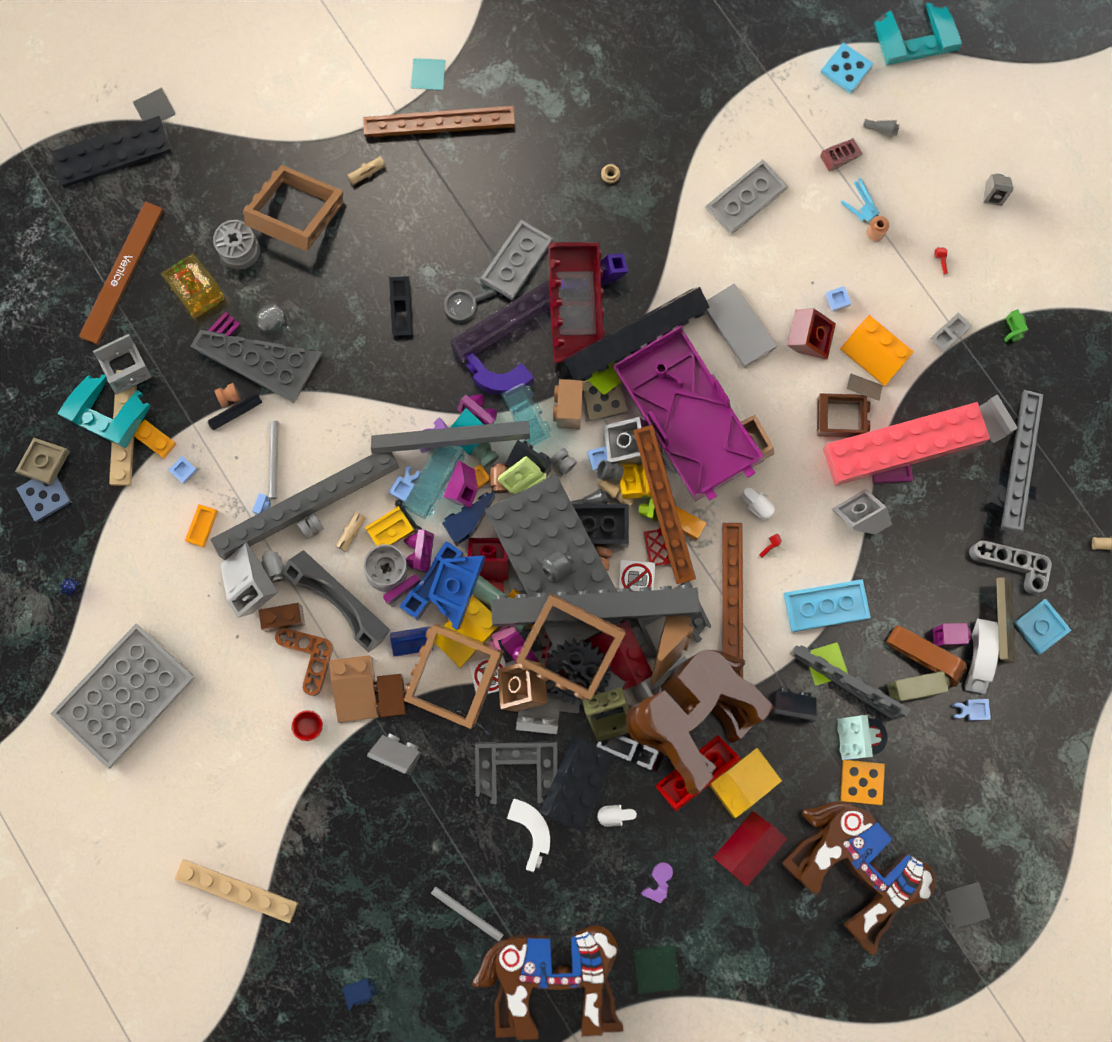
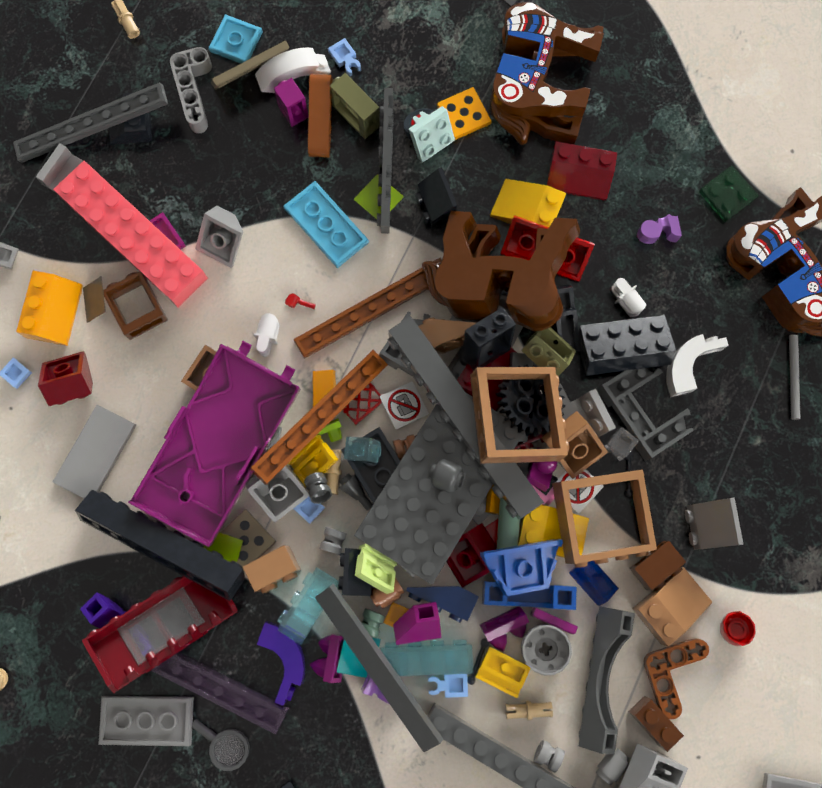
camera: 125 degrees left, 0 degrees up
(501, 727) = (621, 444): none -> clear brick
(617, 518) = (362, 449): none -> clear light blue bracket
(648, 661) = (481, 340): none -> black window

